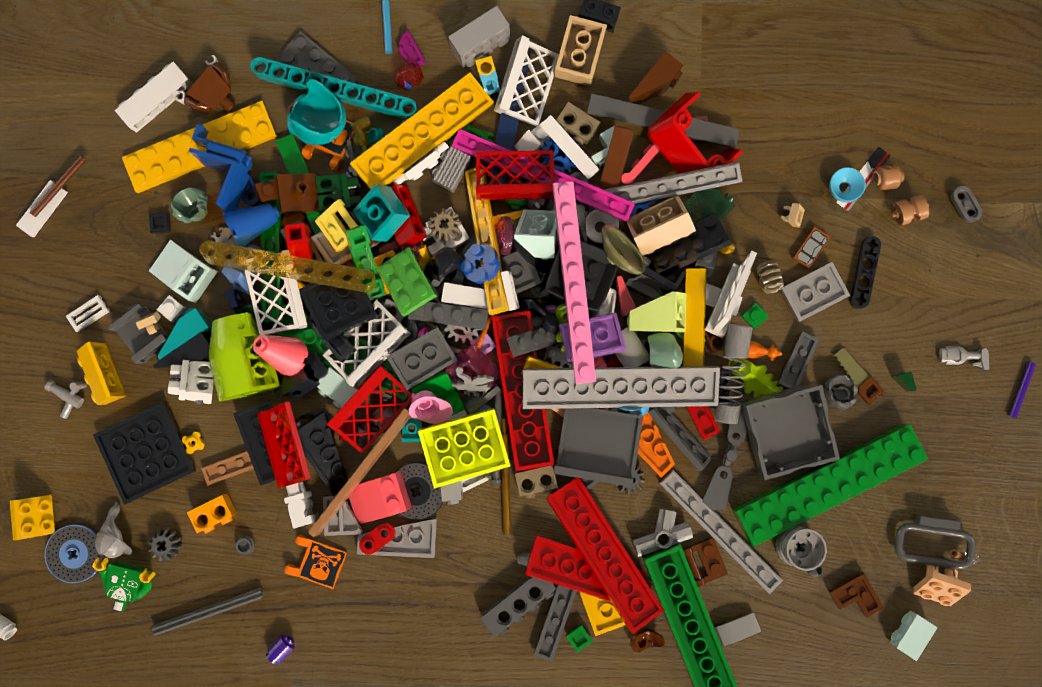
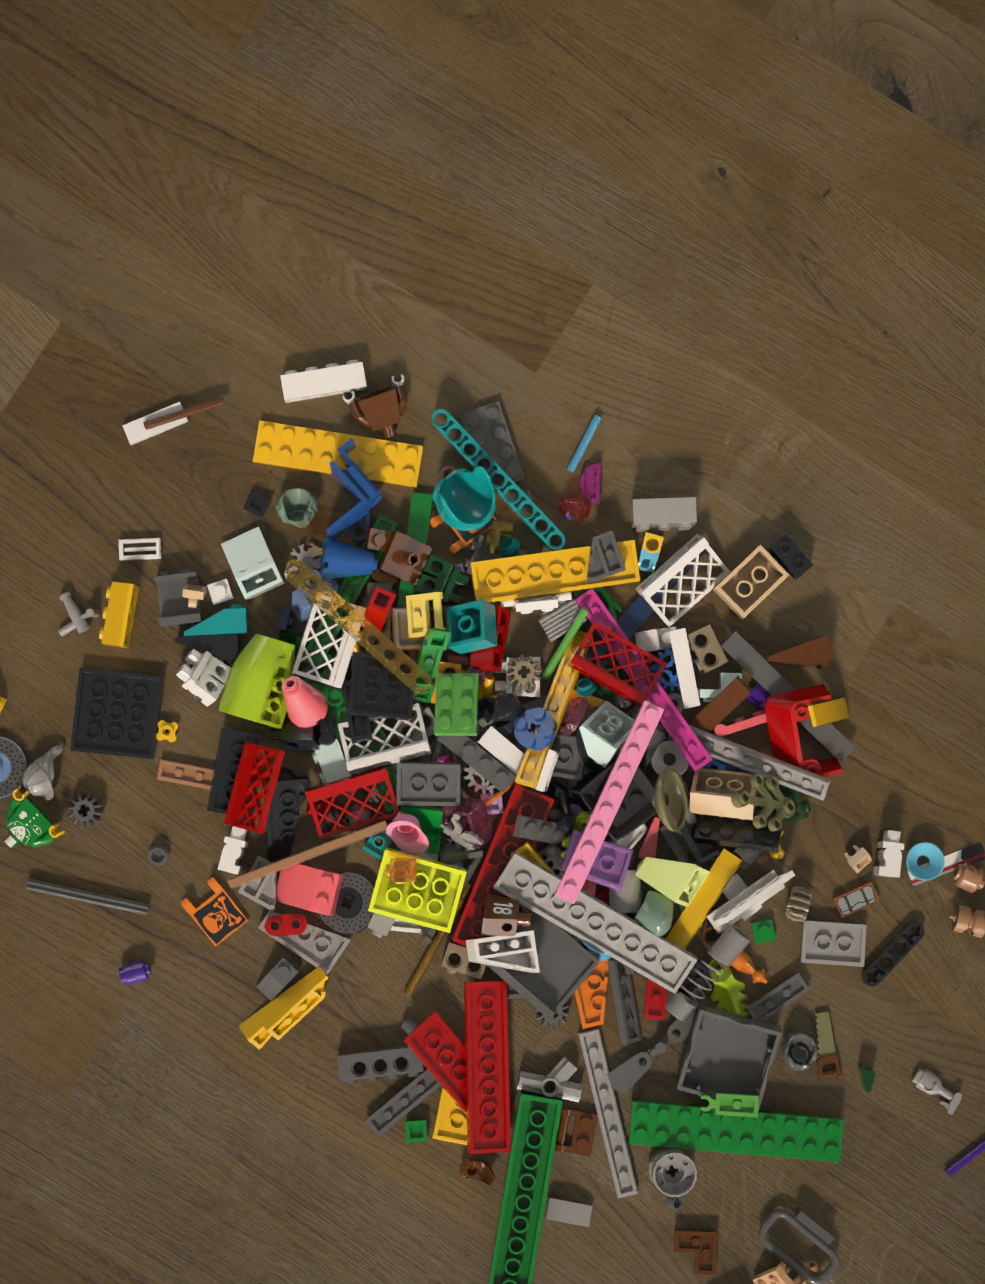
camera: 25 degrees right, 0 degrees up
(211, 510) = (147, 803): light orange brick -> none
(397, 583) = (278, 978): none -> dark grey slope
(418, 606) = (285, 1010): none -> yellow wedge
(440, 439) = (401, 870): none -> clear orange brick
(454, 97) = (604, 557): none -> dark grey wing
(464, 185) = (564, 644): none -> bright green bar
(501, 207) = (585, 687): none -> teal plate
(544, 427) = (502, 916): none -> reddish brown torso
(565, 452) = (508, 952): none -> white wedge
(640, 136) = (758, 696): none -> dark purple tile
(702, 111) = (828, 712): none -> yellow slope
(712, 205) = (784, 805): none -> olive plant
(817, 196) = (889, 855): none -> white hips
(817, 465) = (732, 1104): none -> bright green plate

